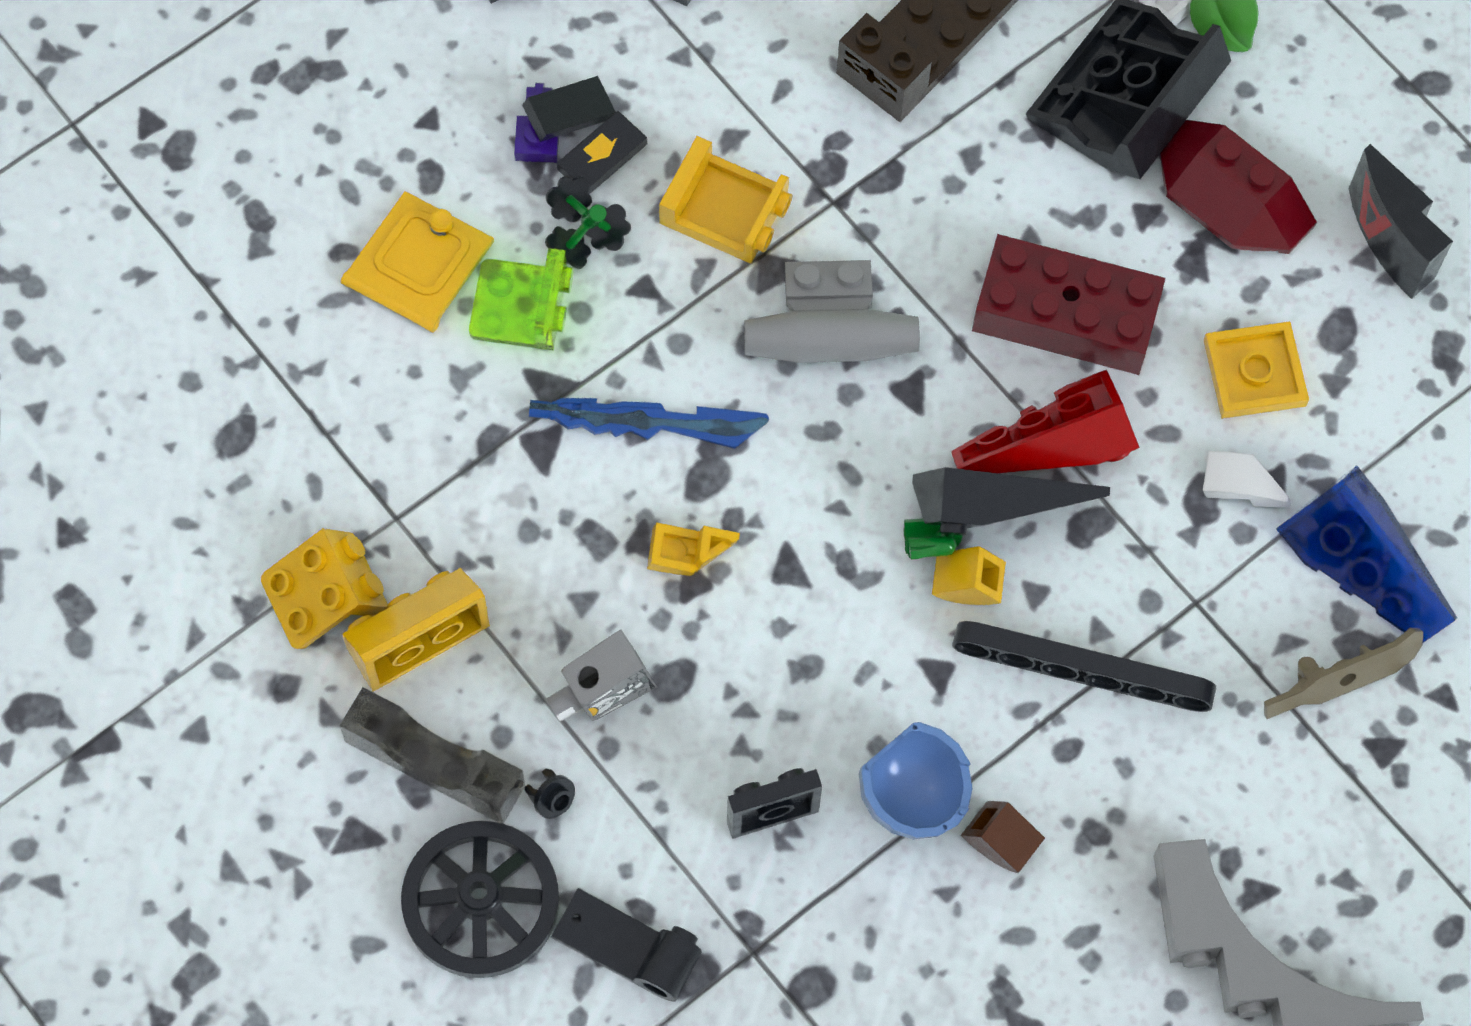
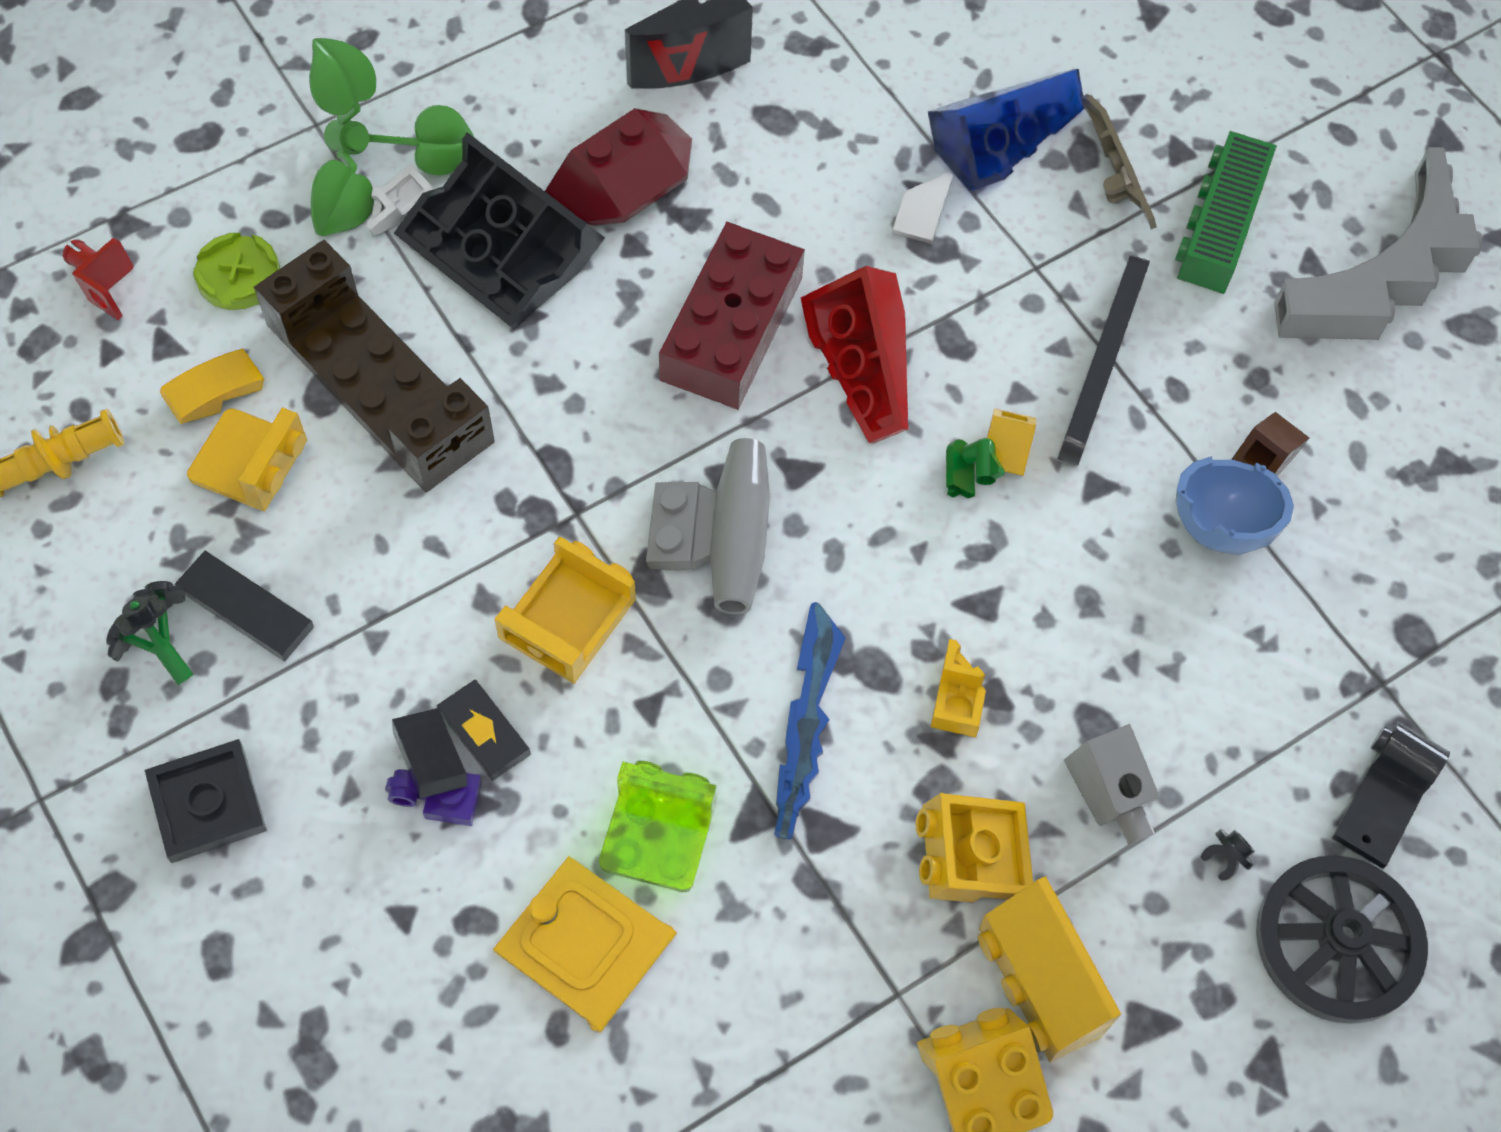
camera: 85 degrees left, 5 degrees down
(403, 743) = (1196, 966): clear smoke arch -> none
(529, 566) = (974, 848): none -> yellow plate
(600, 223) = (575, 735): black plant -> none
(765, 806) = (1255, 632): black plate -> none
(972, 498) = (941, 402): black wedge -> none
(1256, 370) = (811, 183): yellow tile -> none
(1298, 788) = (1226, 213): none -> green brick

